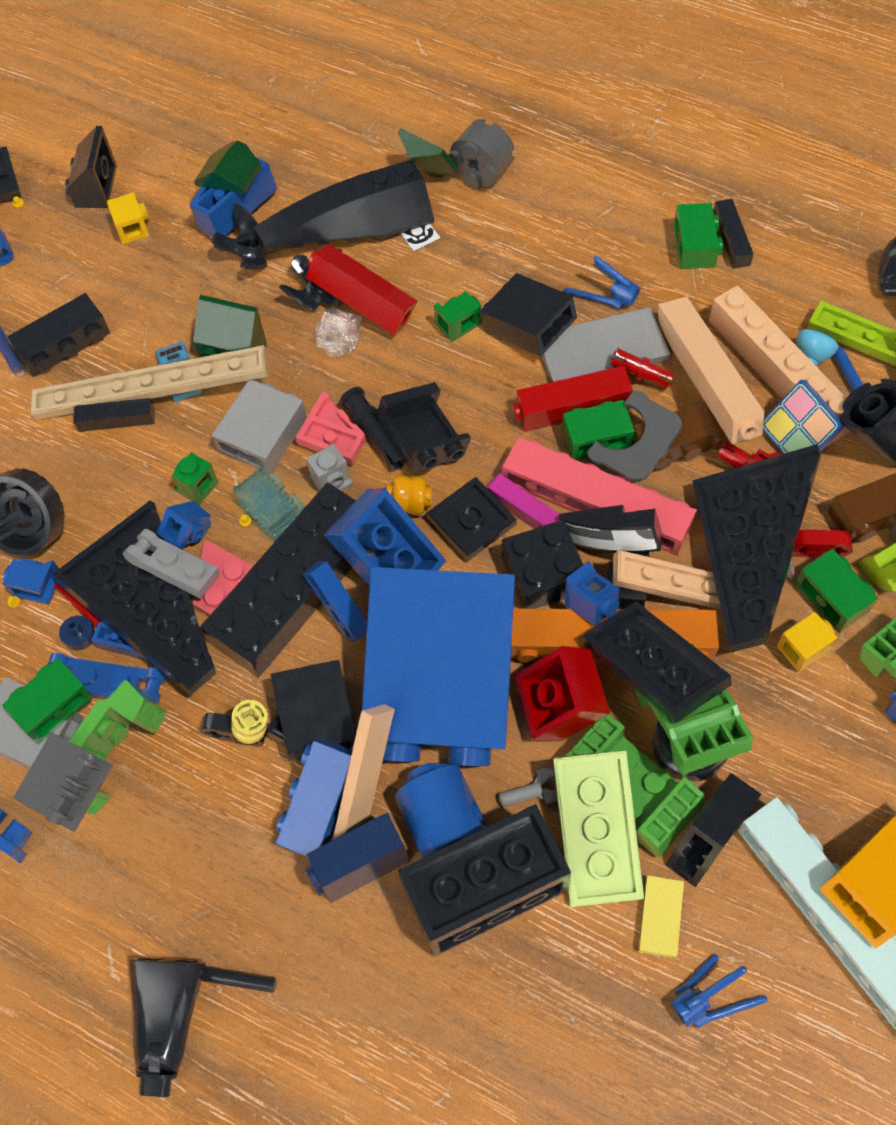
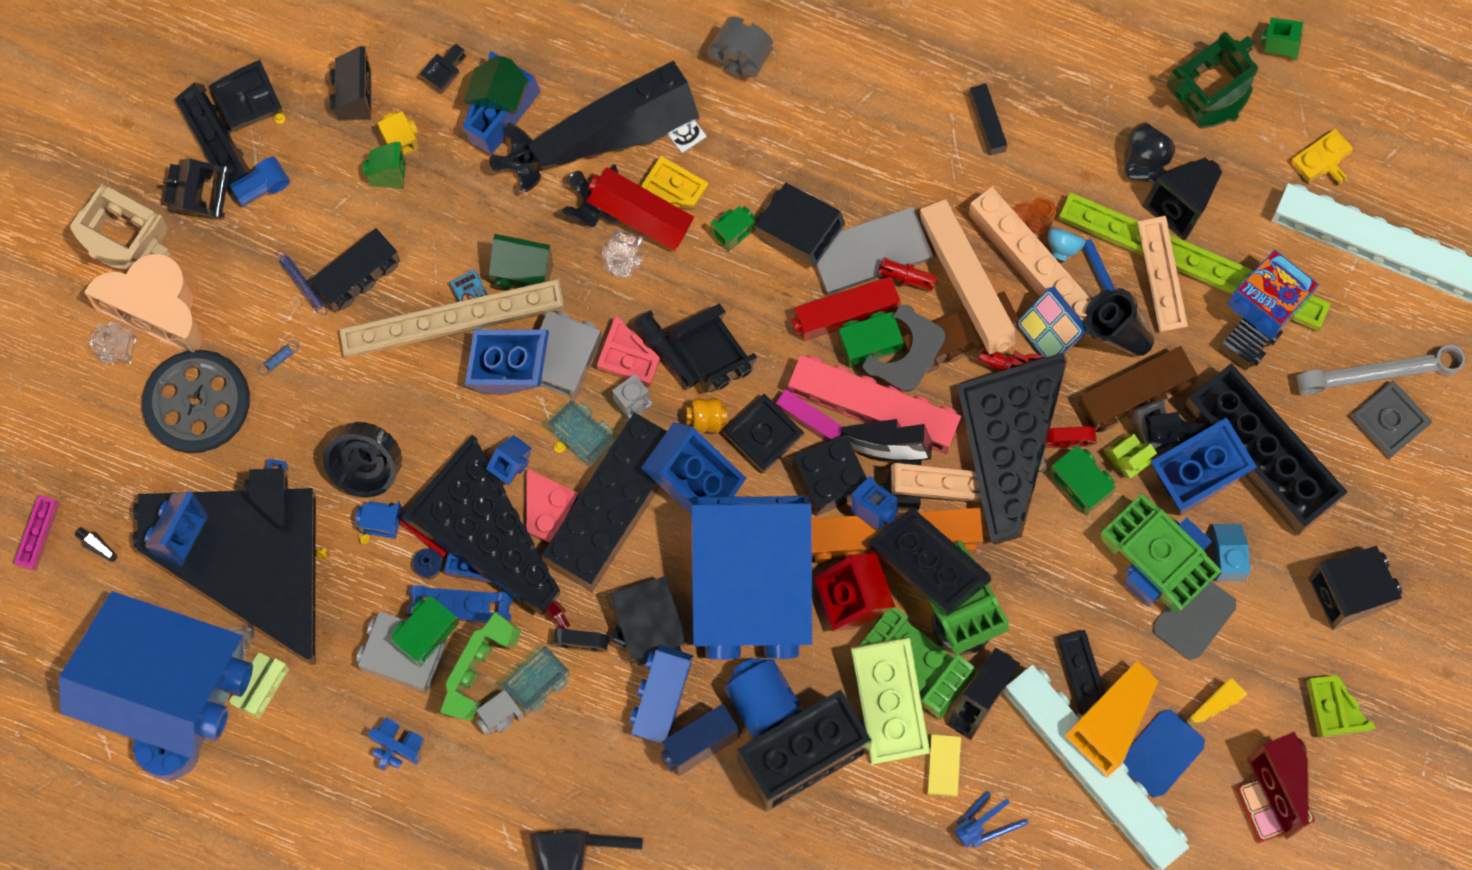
camera: 10 degrees left, 10 degrees up
(62, 782) = (457, 700): dark grey hinge -> none
(110, 241) = (386, 166): none -> green slope
(114, 414) = (422, 350): black piece -> none
(123, 807) = (498, 714): none -> light grey brick
(172, 564) = (506, 498): light grey plate -> none
(174, 772) = (536, 681): none -> clear light blue brick
(183, 167) = (442, 71): none -> black plate
(188, 475) = (509, 411): green brick -> none
(193, 420) = (506, 360): none -> blue slope
(211, 696) = (555, 613): none -> dark red bar
(248, 729) = (592, 637): light yellow wheel -> none
(336, 600) = (656, 522): blue piece -> none
(364, 769) = (698, 672): light nougat tile -> none
(404, 273) = (675, 184): none -> yellow wing
(427, 156) = (684, 54): slope -> none
(532, 791) = (834, 673): light grey bar -> none
(623, 289) = (887, 188): blue plant -> none
(697, 236) = (953, 126): green brick -> none
(790, 315) = (1040, 215): none -> clear orange brick
(807, 641) = (1057, 528): yellow brick -> none
(835, 811) = (1081, 670): none -> black tile

